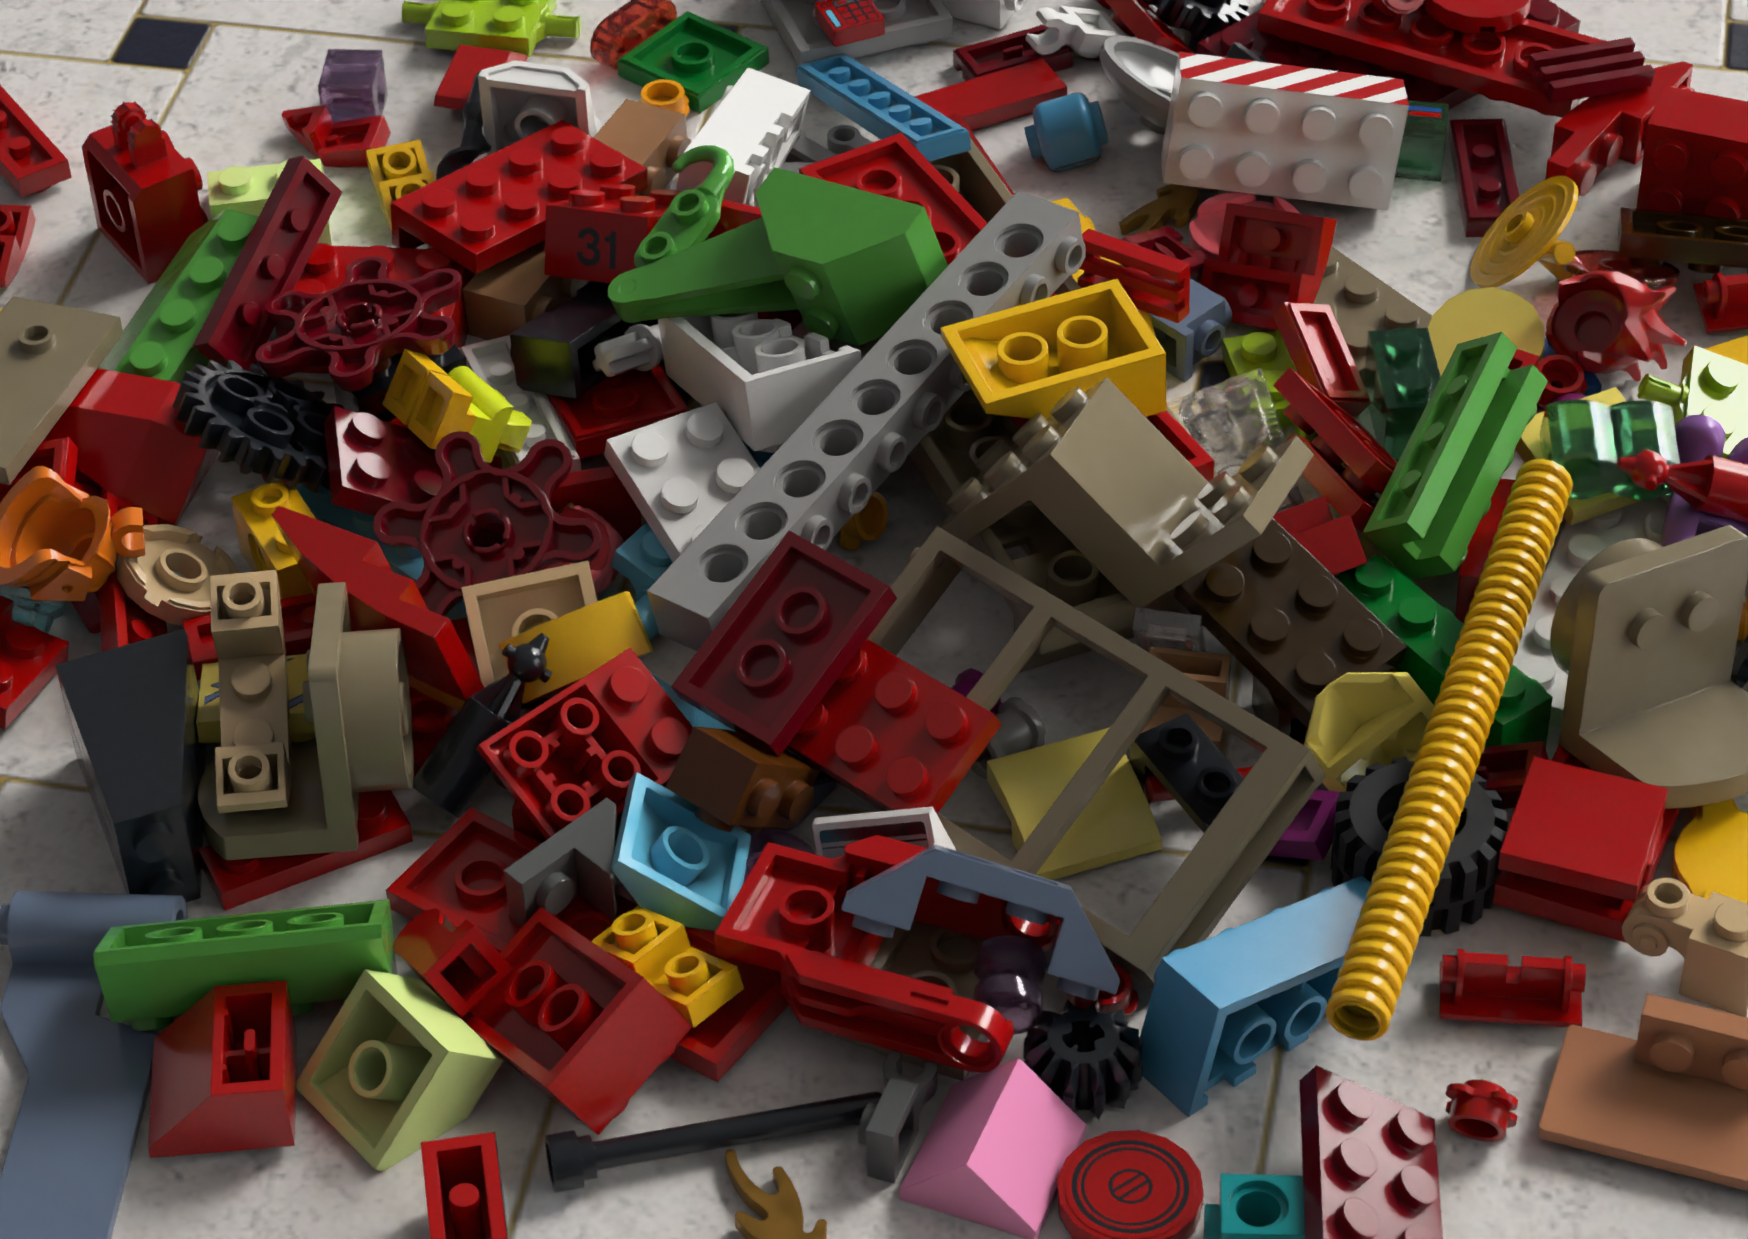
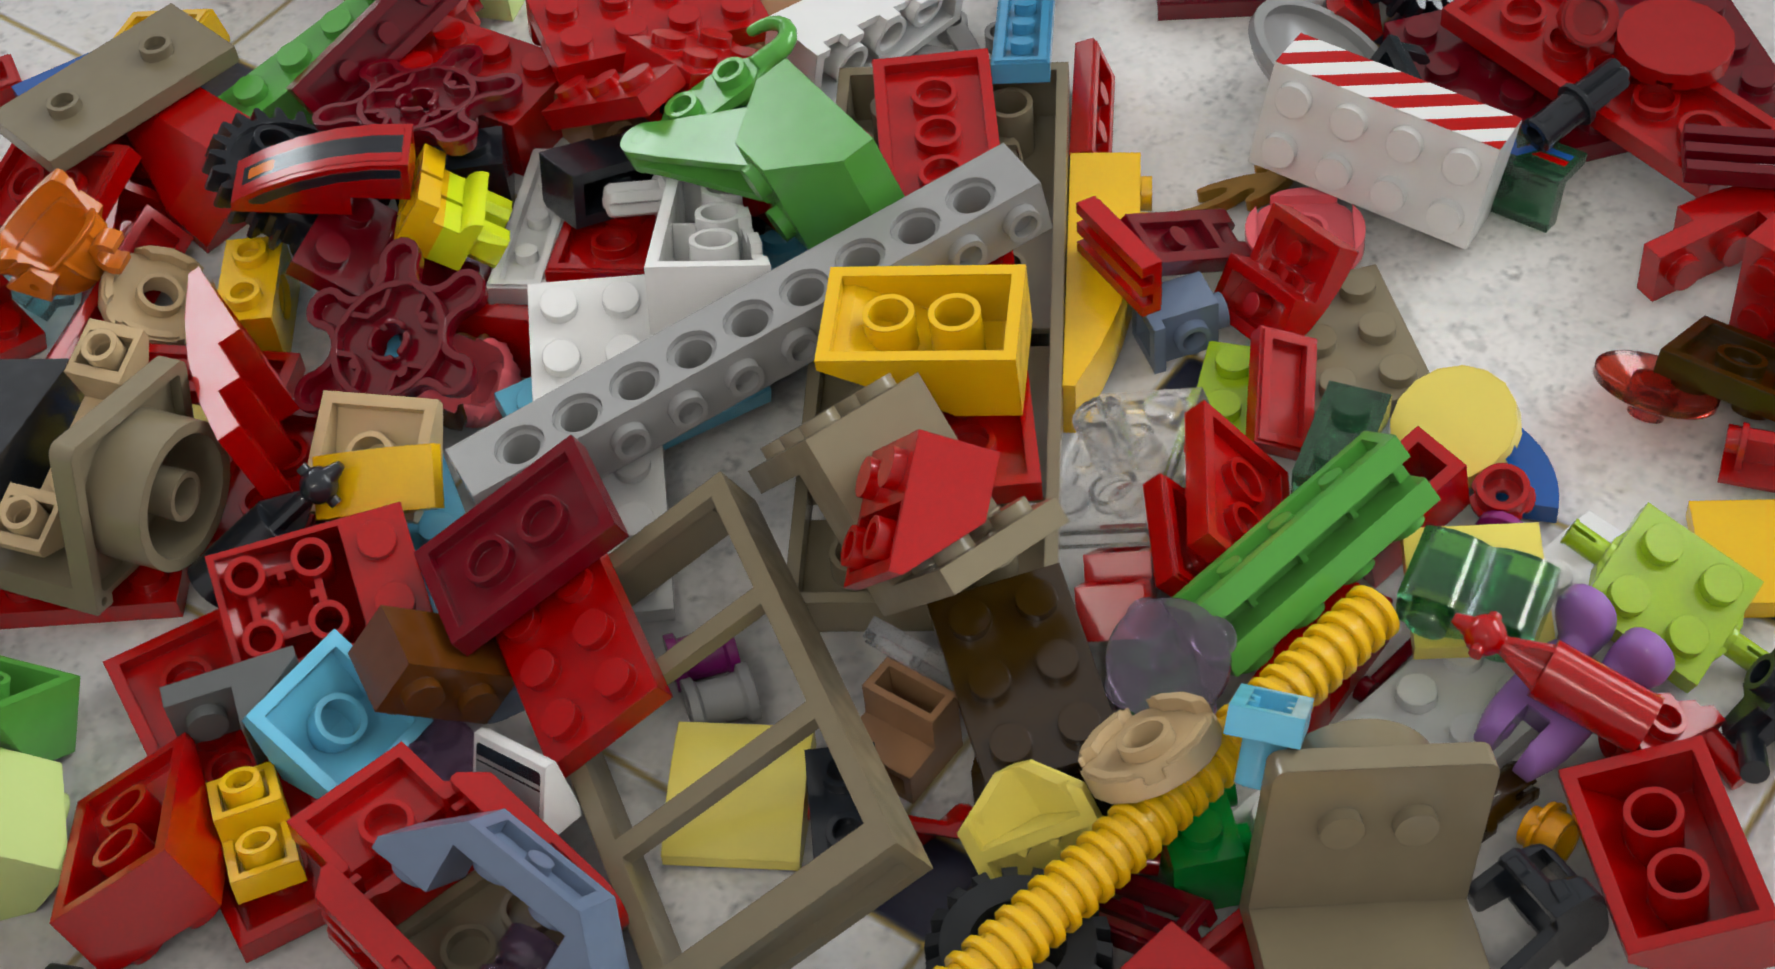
camera: 30 degrees right, 5 degrees up
(338, 392) = (328, 171): none -> red slope
(451, 960) = (92, 752): red leg -> none
(559, 264) = (613, 96): none -> red plate
(866, 524) = (759, 431): plate -> none
(998, 94) = (1156, 29): red tile -> none
(1067, 132) = (1200, 83): dark azure head -> none
(1177, 479) = (915, 504): none -> red slope
(1311, 830) = (919, 900): magenta plate -> none
(1411, 564) = (1168, 649): none -> clear purple piece
(1430, 59) = (1576, 104): none -> black axle
(1449, 627) = (1150, 751): none -> tan tile
(1482, 171) = (1591, 242): dark red tile -> none
(1528, 234) = (1573, 319): yellow shield -> none
(1553, 573) = (1266, 723): none -> medium azure tile
(1610, 323) = (1588, 446): red hair -> none

